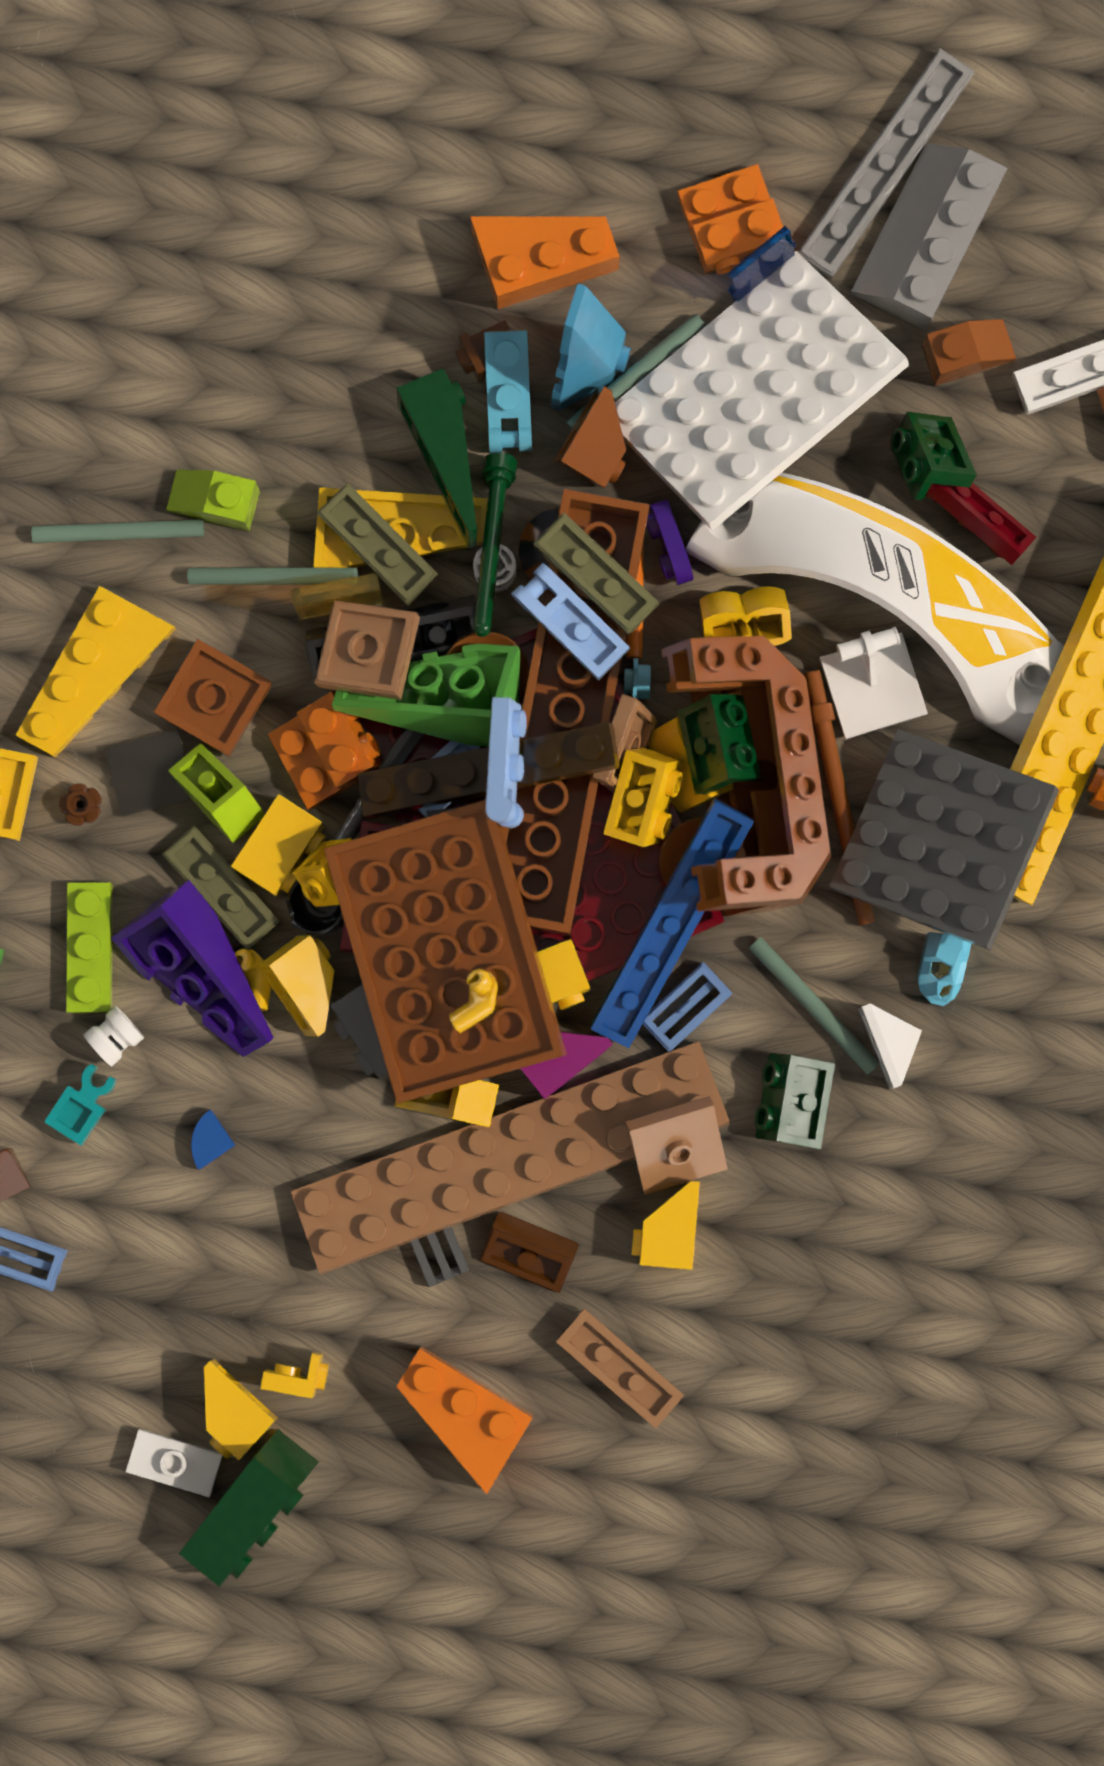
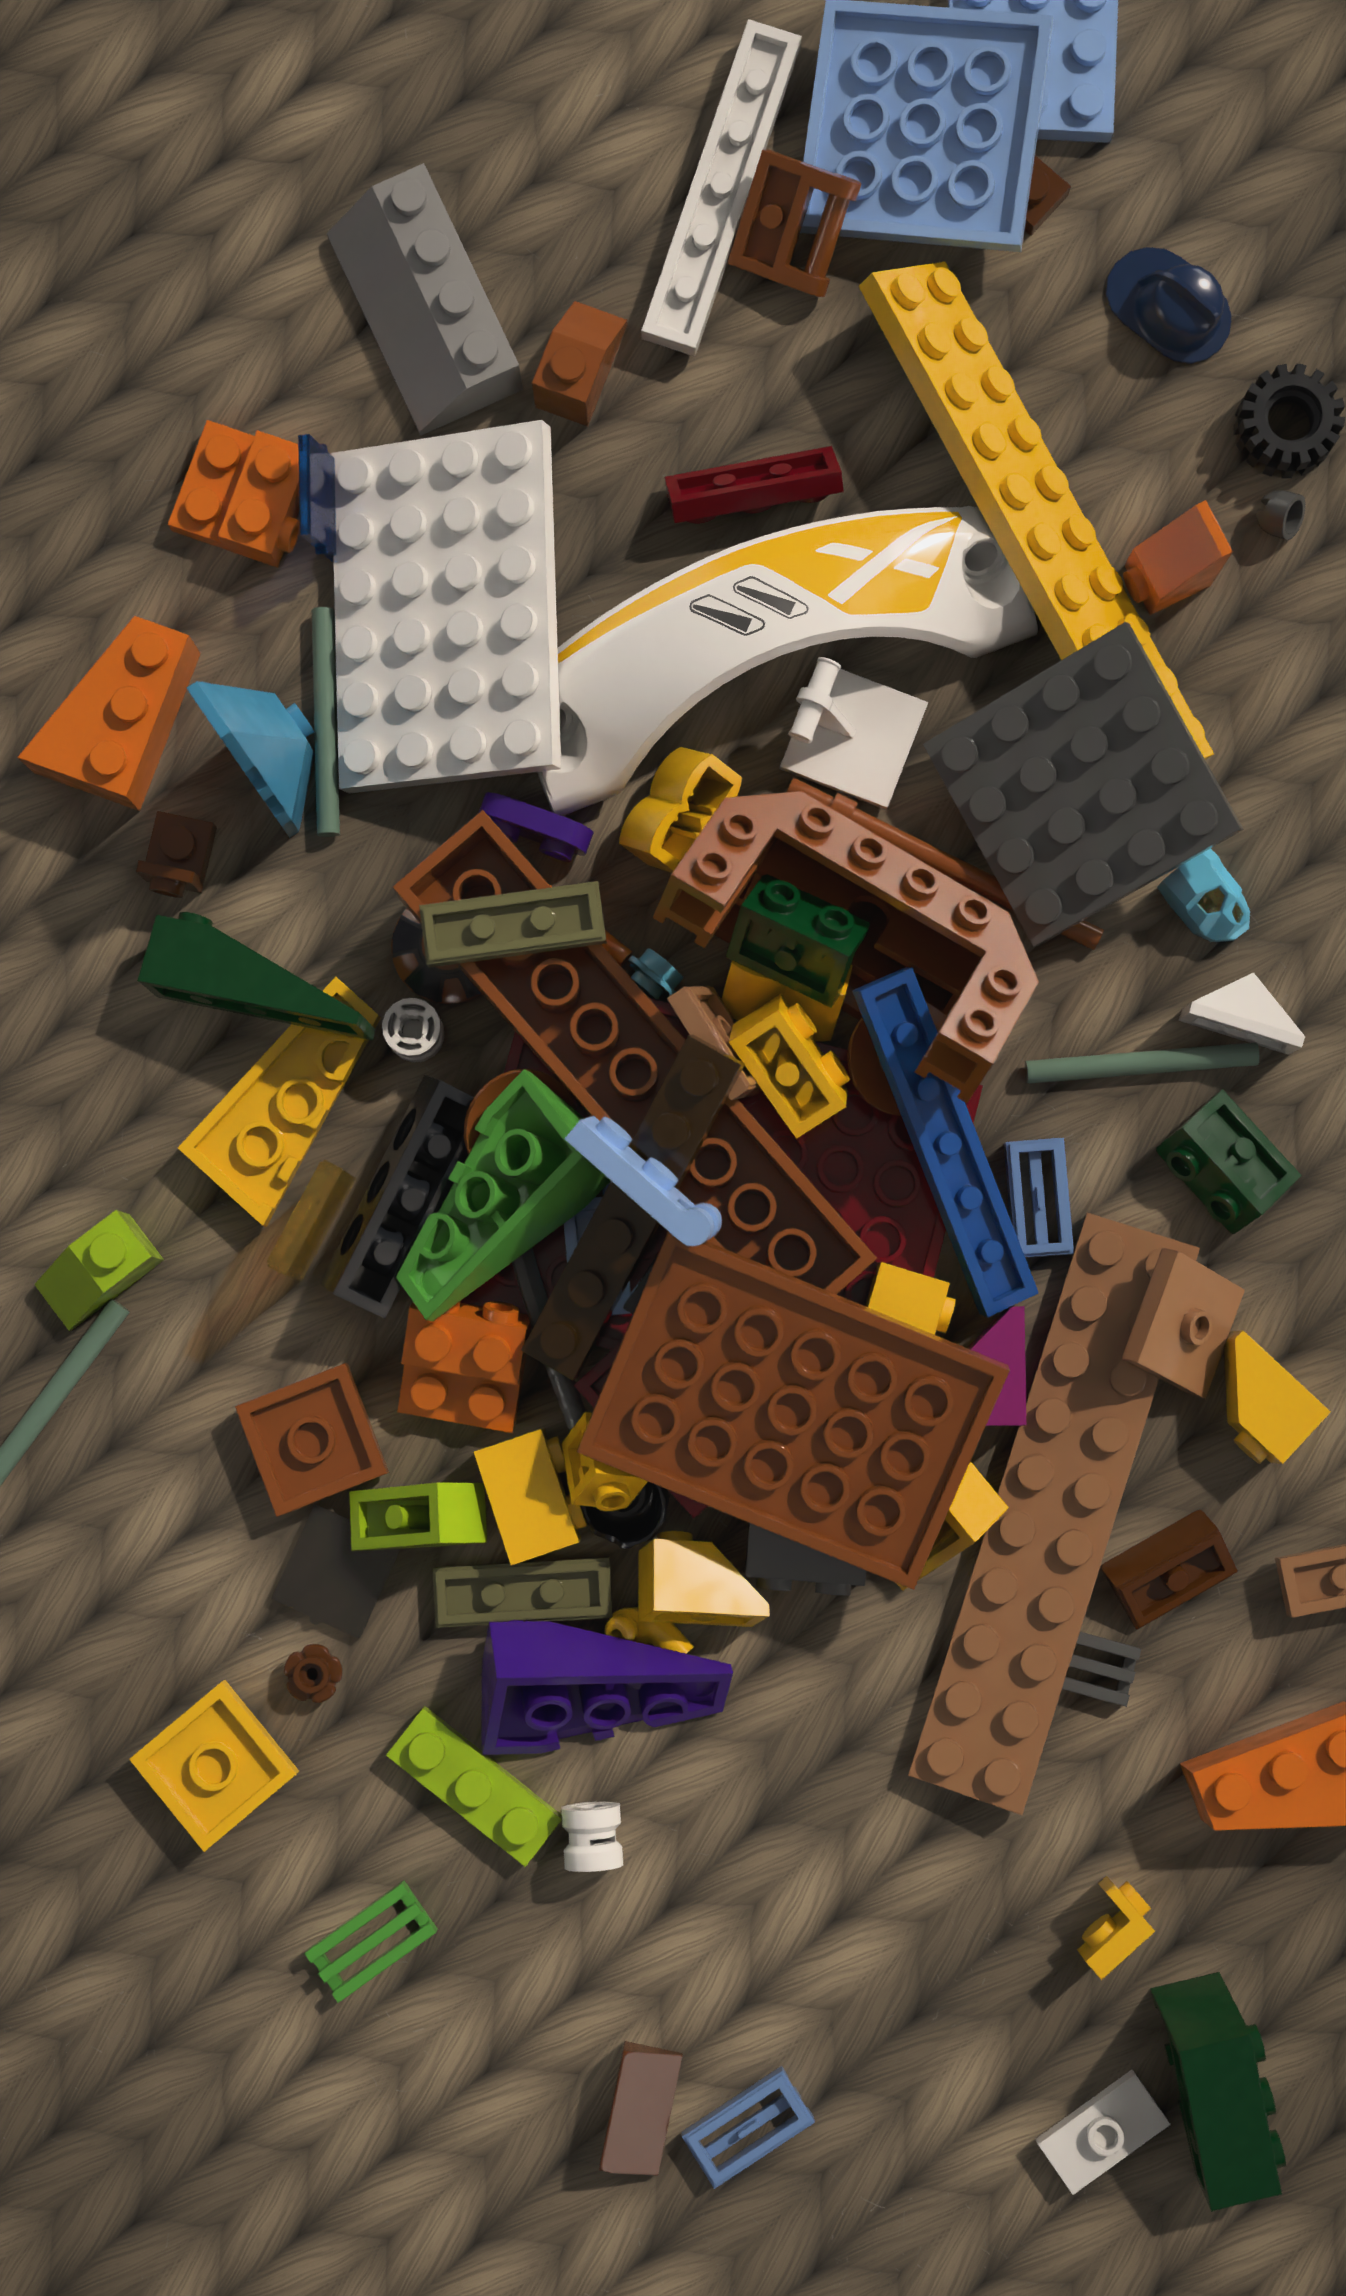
camera: 50 degrees left, 0 degrees up
(77, 1111) = (643, 1937): teal plate -> none
(96, 661) = (173, 1539): yellow wing -> none
(209, 1140) = (785, 1819): blue tile -> none
(232, 1413) = (1101, 2025): yellow slope -> none
(267, 576) = (229, 1275): sand green bar -> none
(367, 650) = (397, 1234): medium nougat plate -> none
(377, 544) = (288, 1134): olive tile -> none
(481, 1000) = (881, 1413): yellow arm -> none
(499, 473) = (317, 946): dark green piece -> none
(508, 389) = (234, 865): medium azure plate -> none
(572, 622) = (544, 991): light blue plate -> none
(595, 442) = (364, 817): dark orange slope -> none
(885, 163) = (314, 290): light grey tile -> none
(930, 453) = (658, 482): dark green bracket -> none

